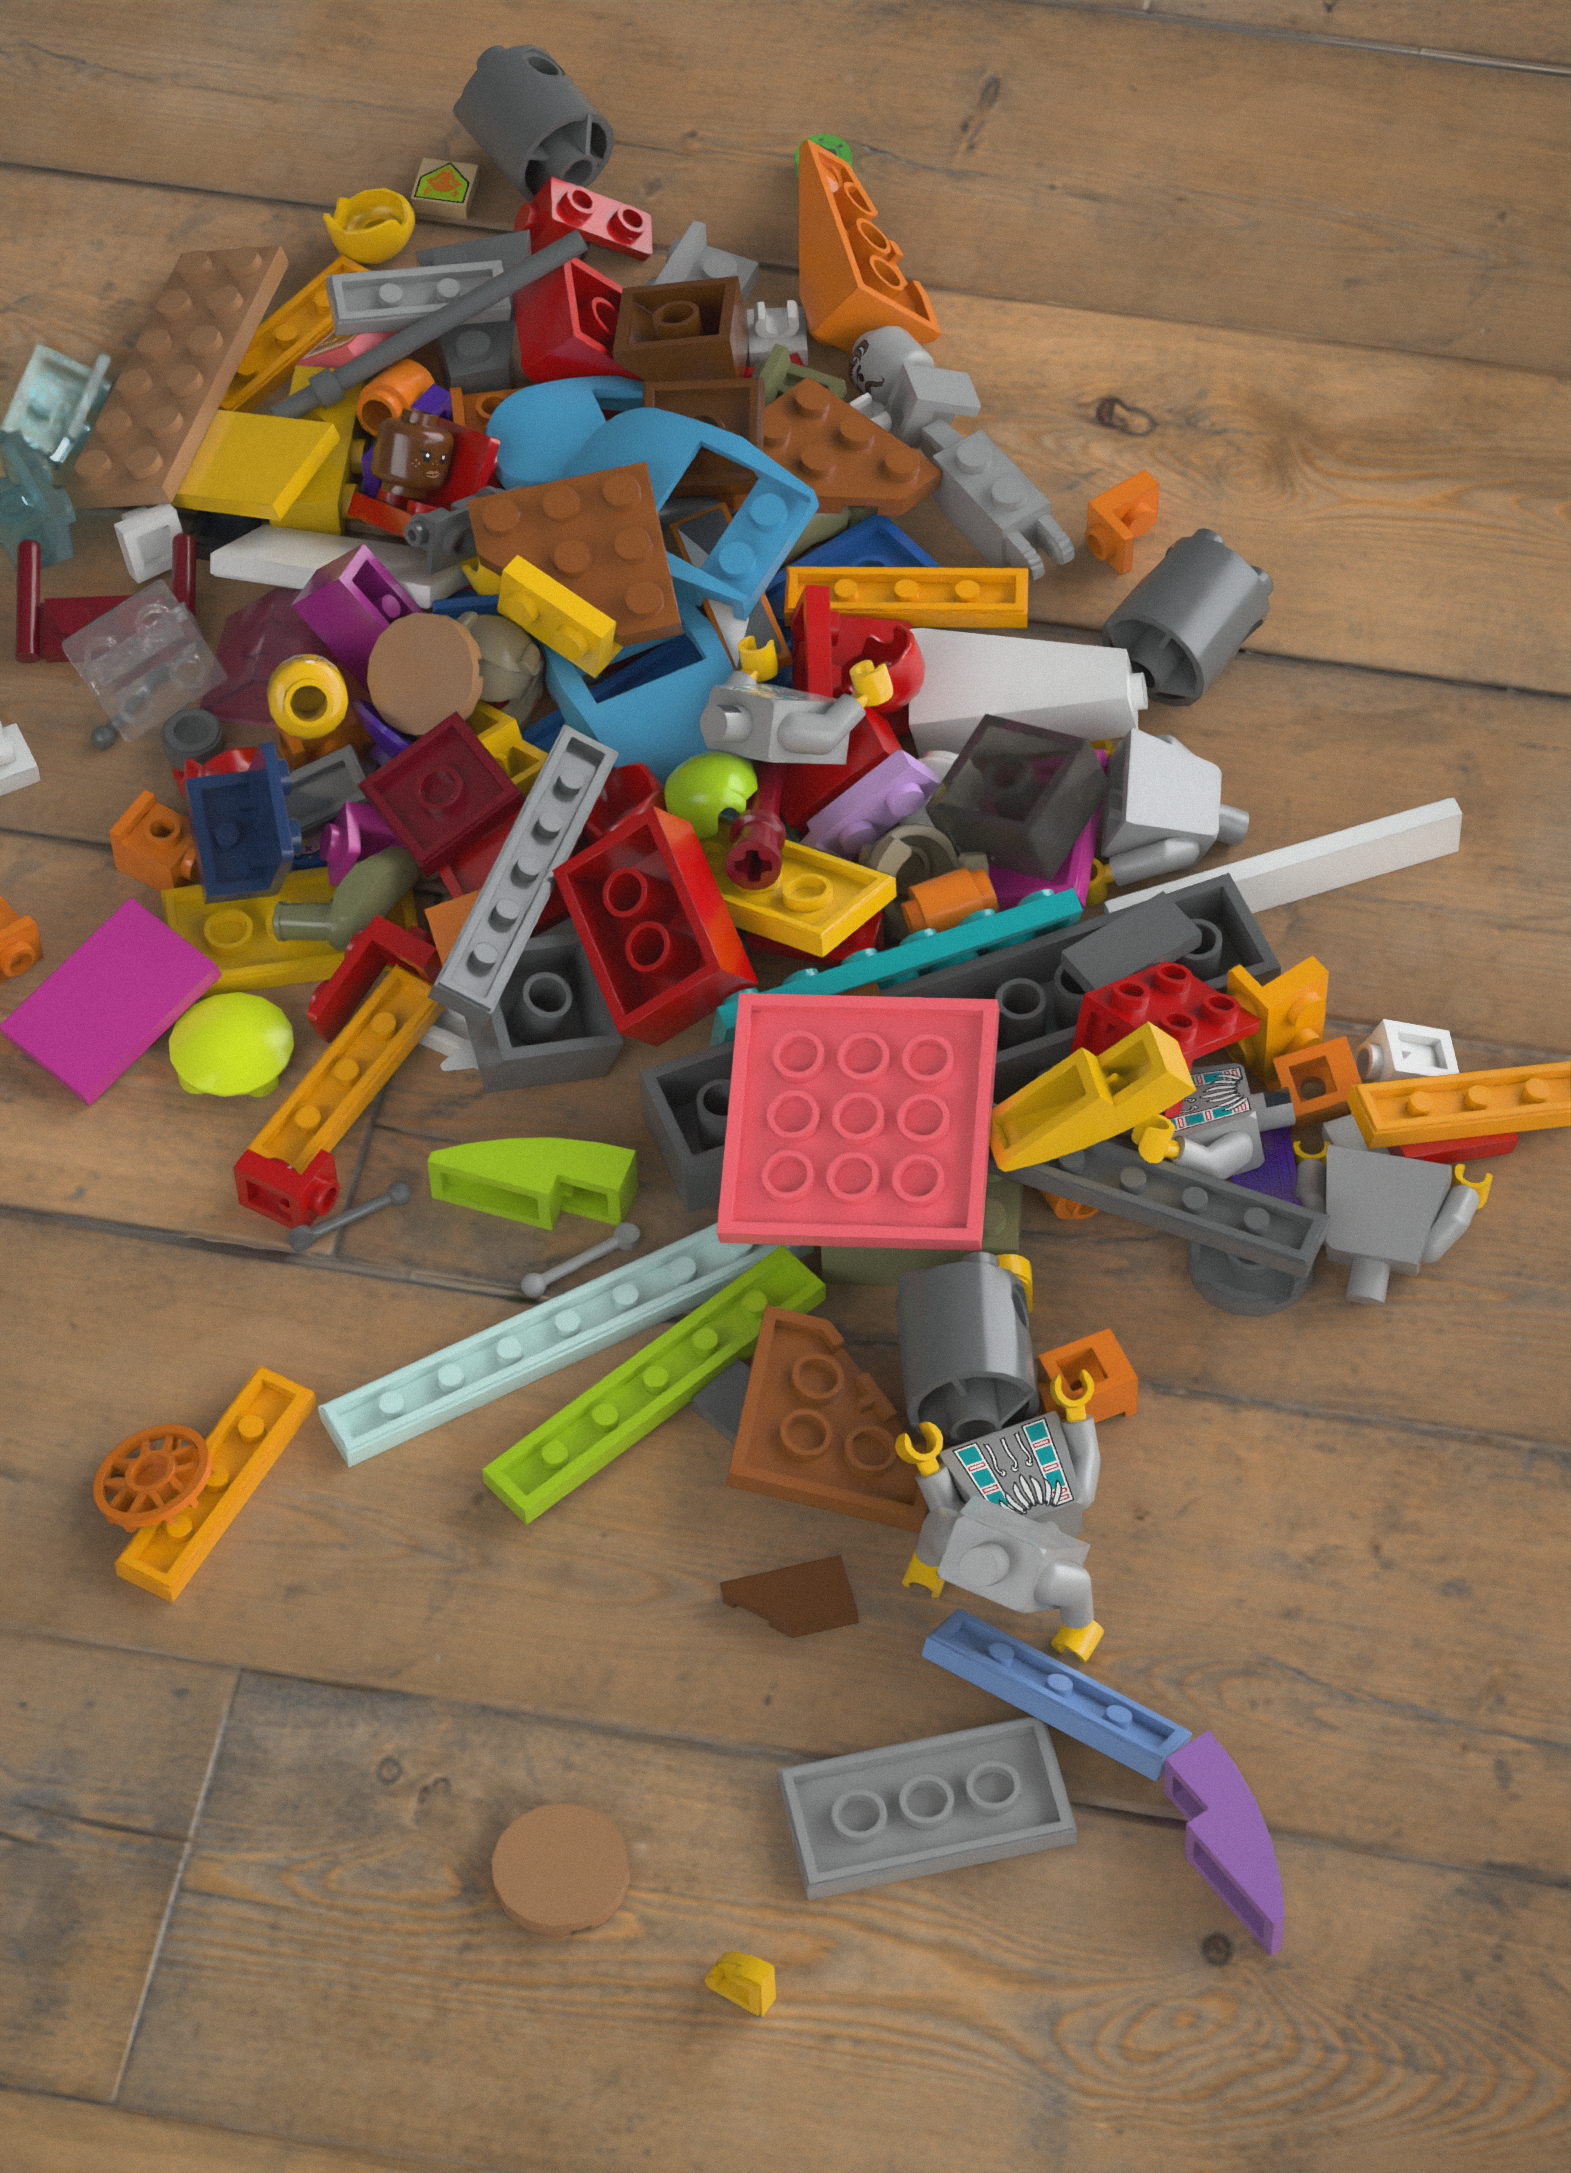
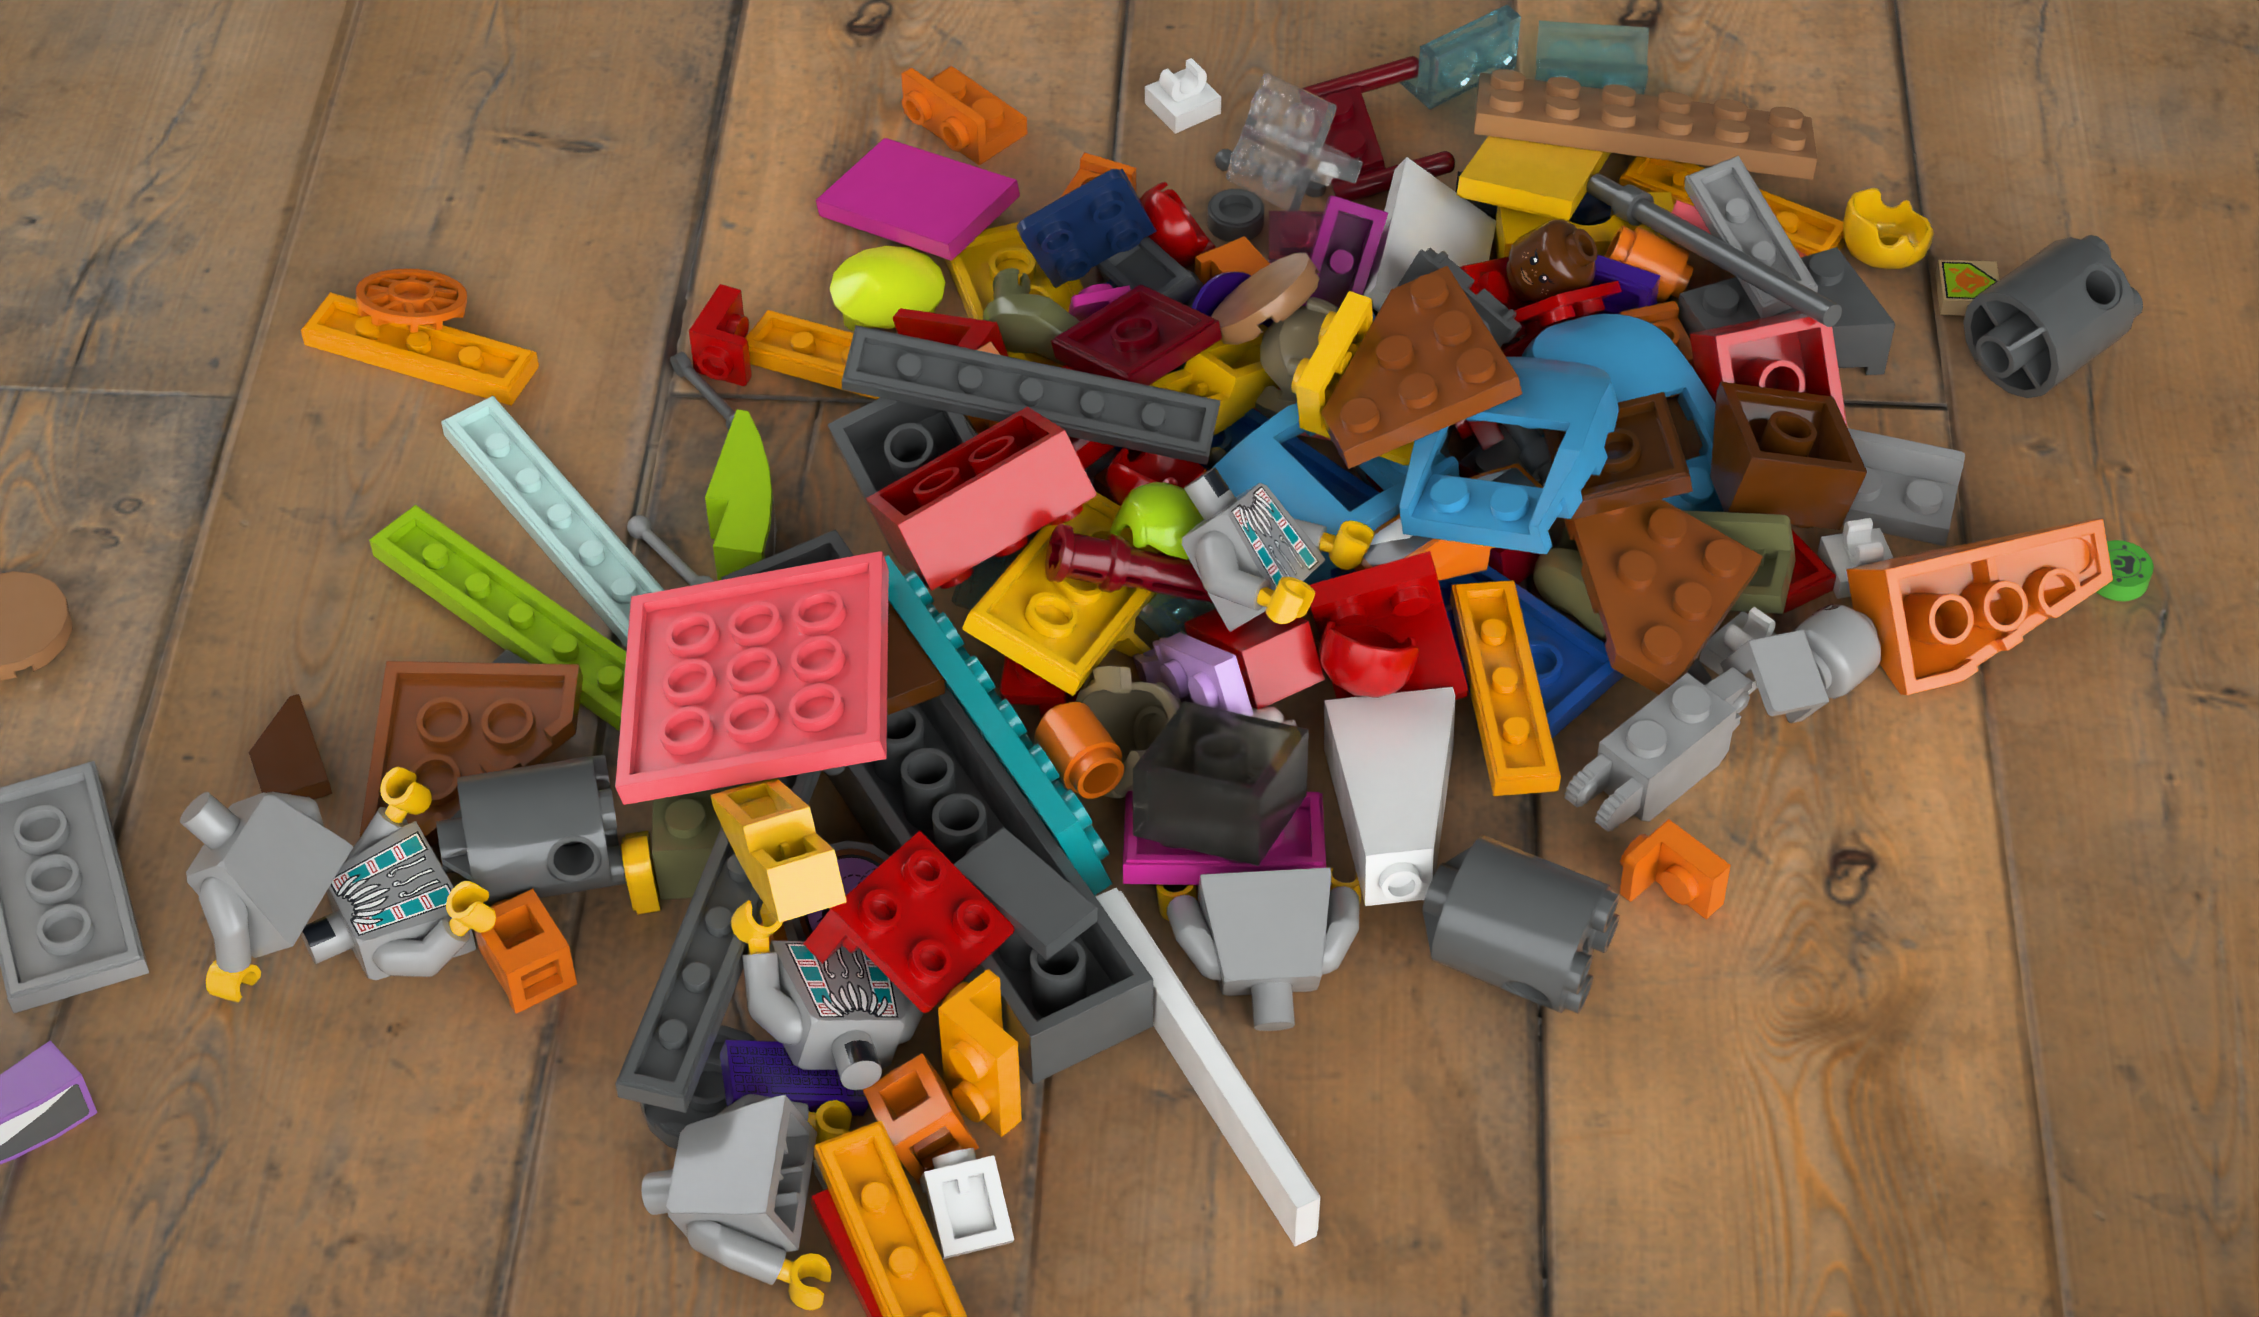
camera: 80 degrees right, 5 degrees down
(147, 540) = (1447, 132): white tile -> none
(307, 696) = (1234, 232): yellow head -> none
(599, 219) = (1949, 387): red bracket -> none
(1055, 1693) = (141, 992): medium blue tile -> none

